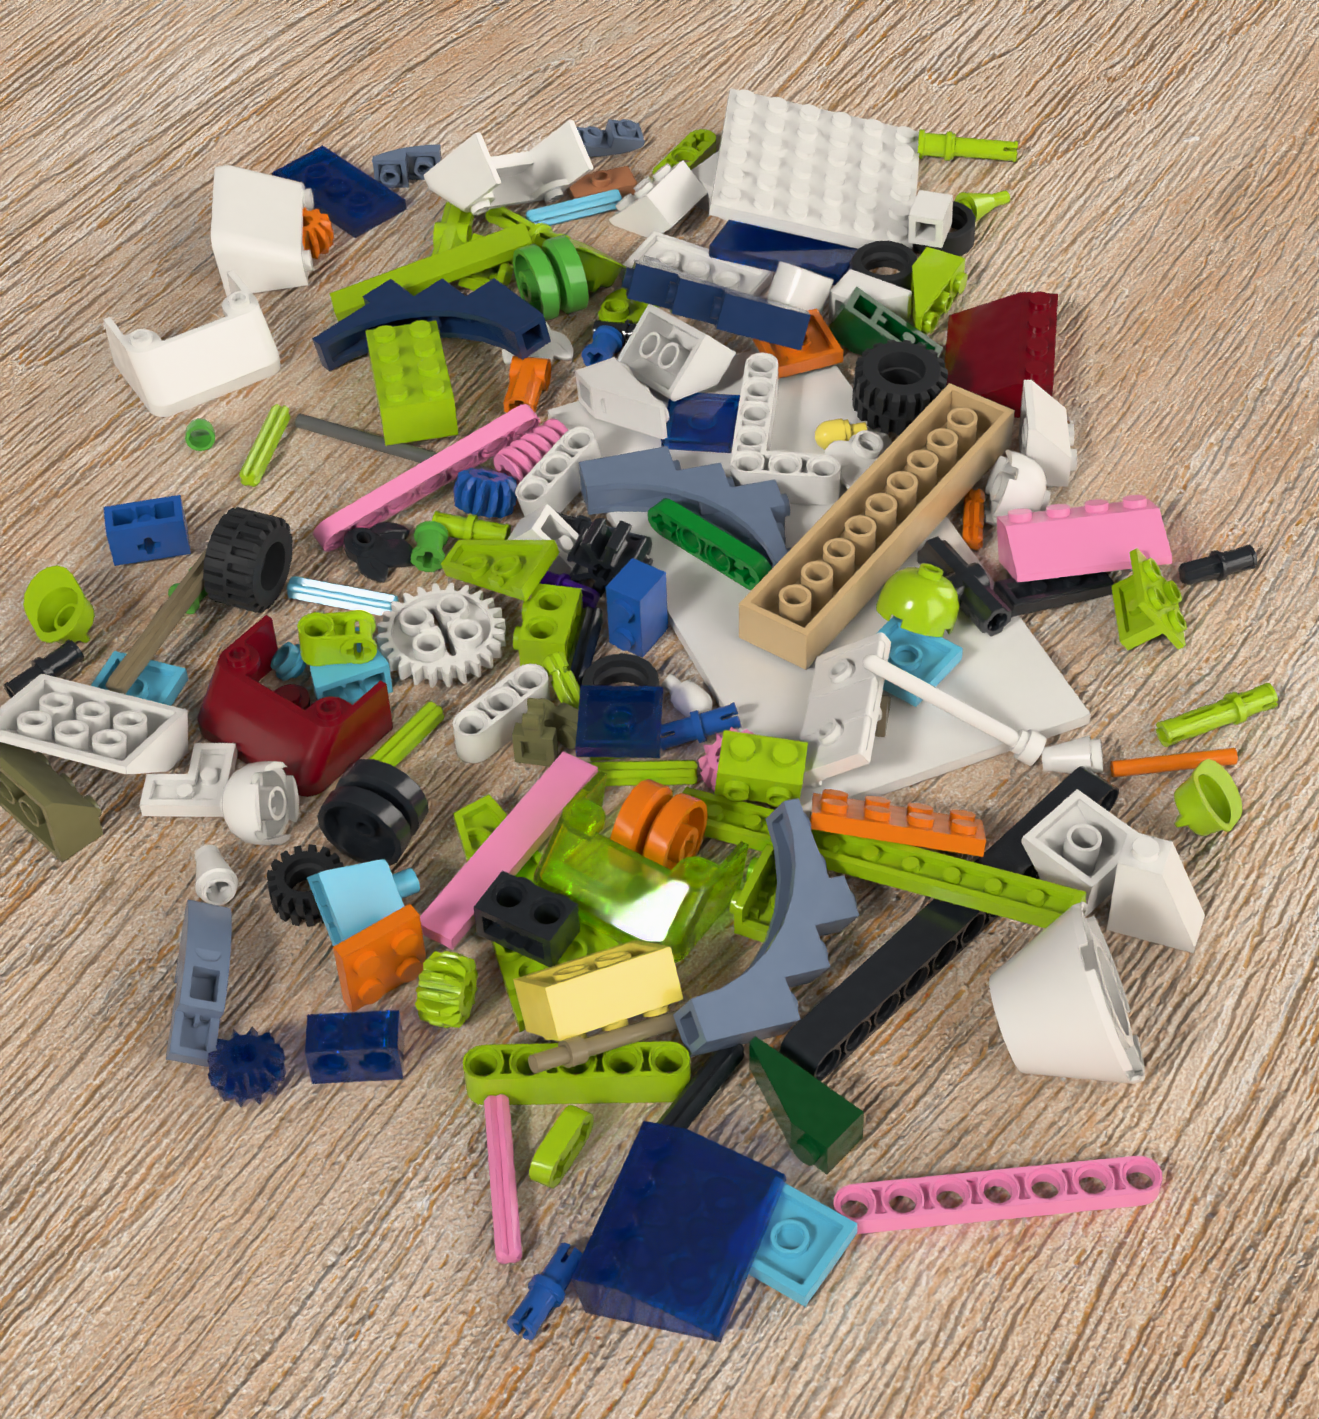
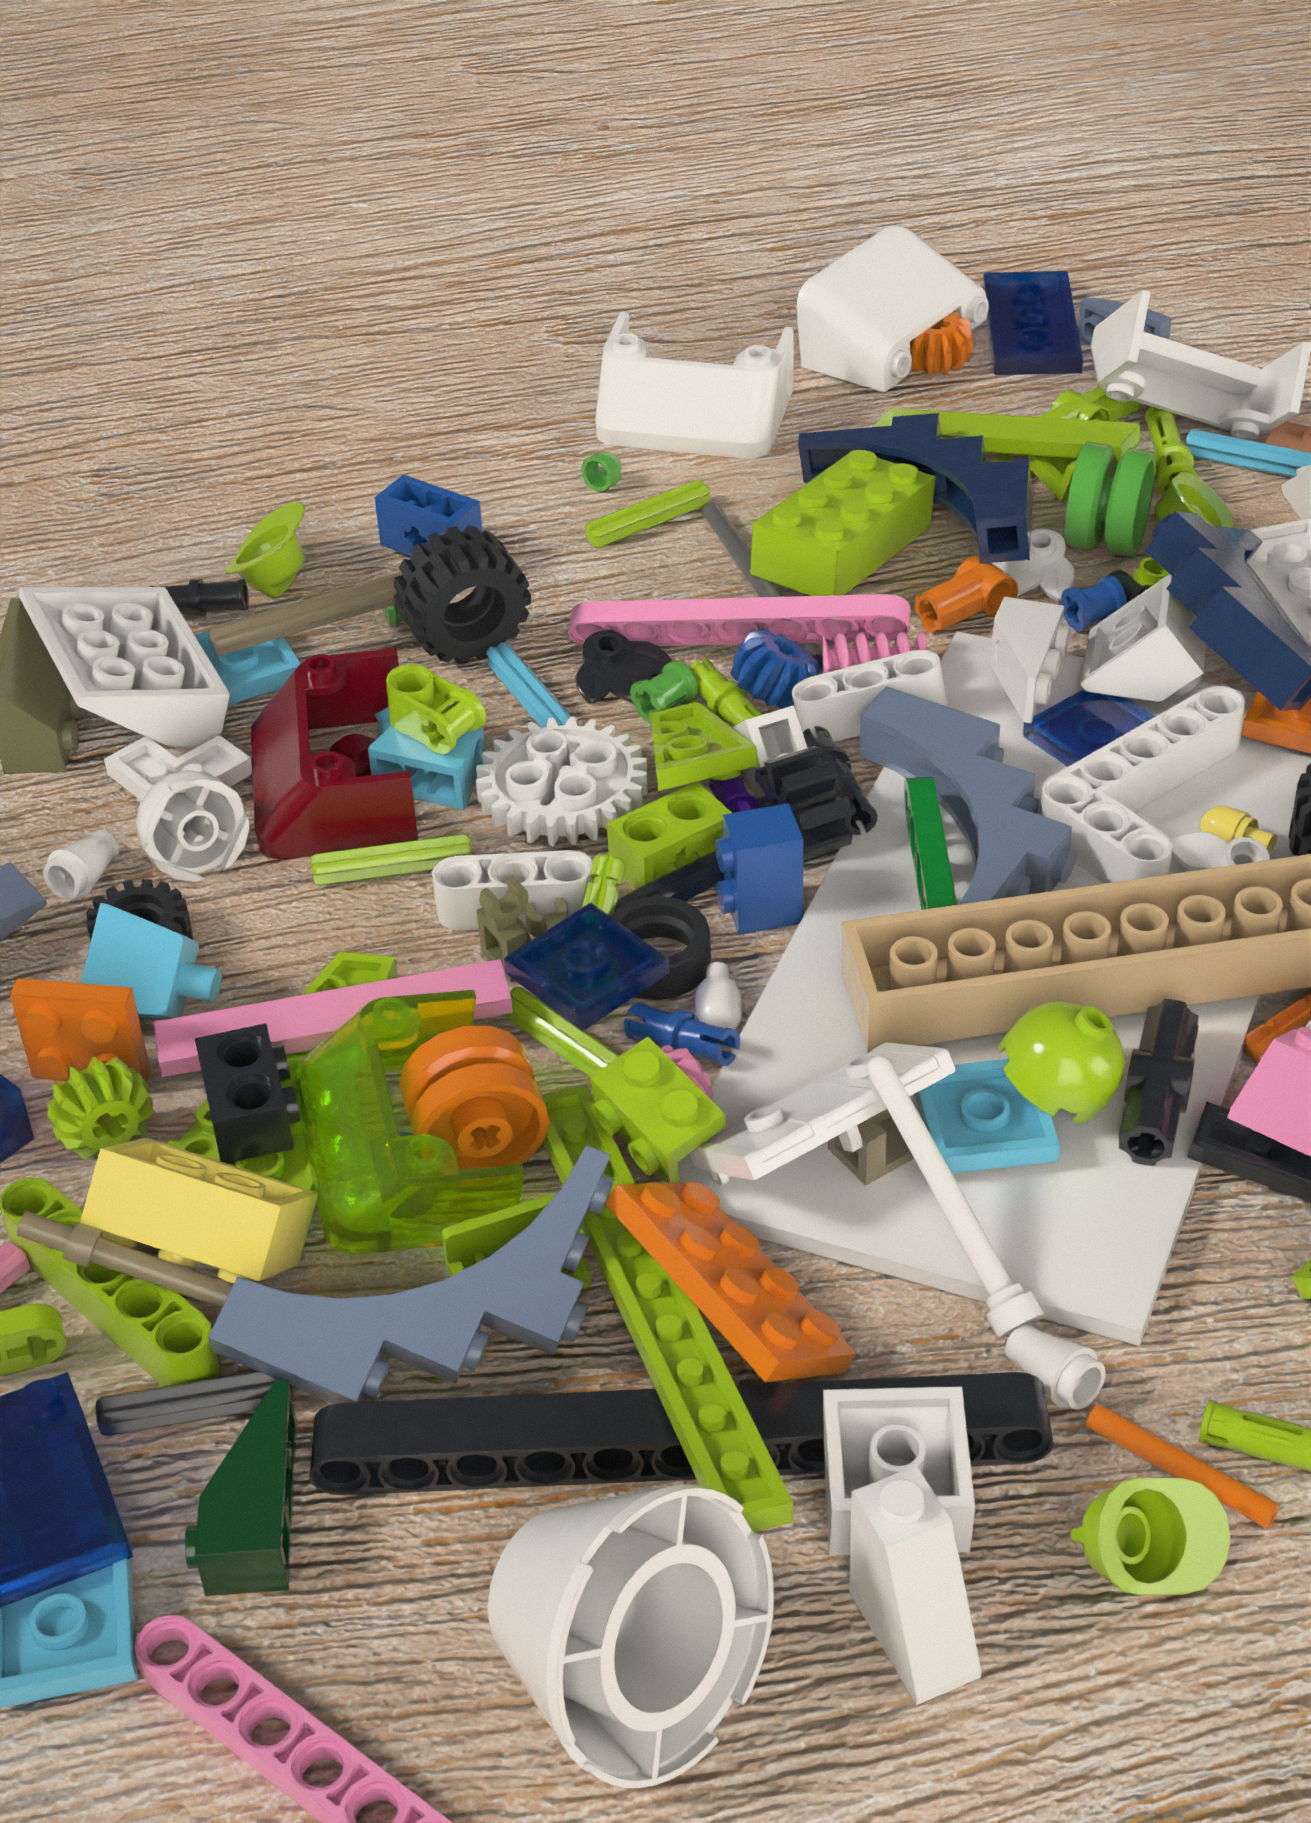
camera: 45 degrees right, 5 degrees down
(373, 812) = (263, 893): black wheel -> none

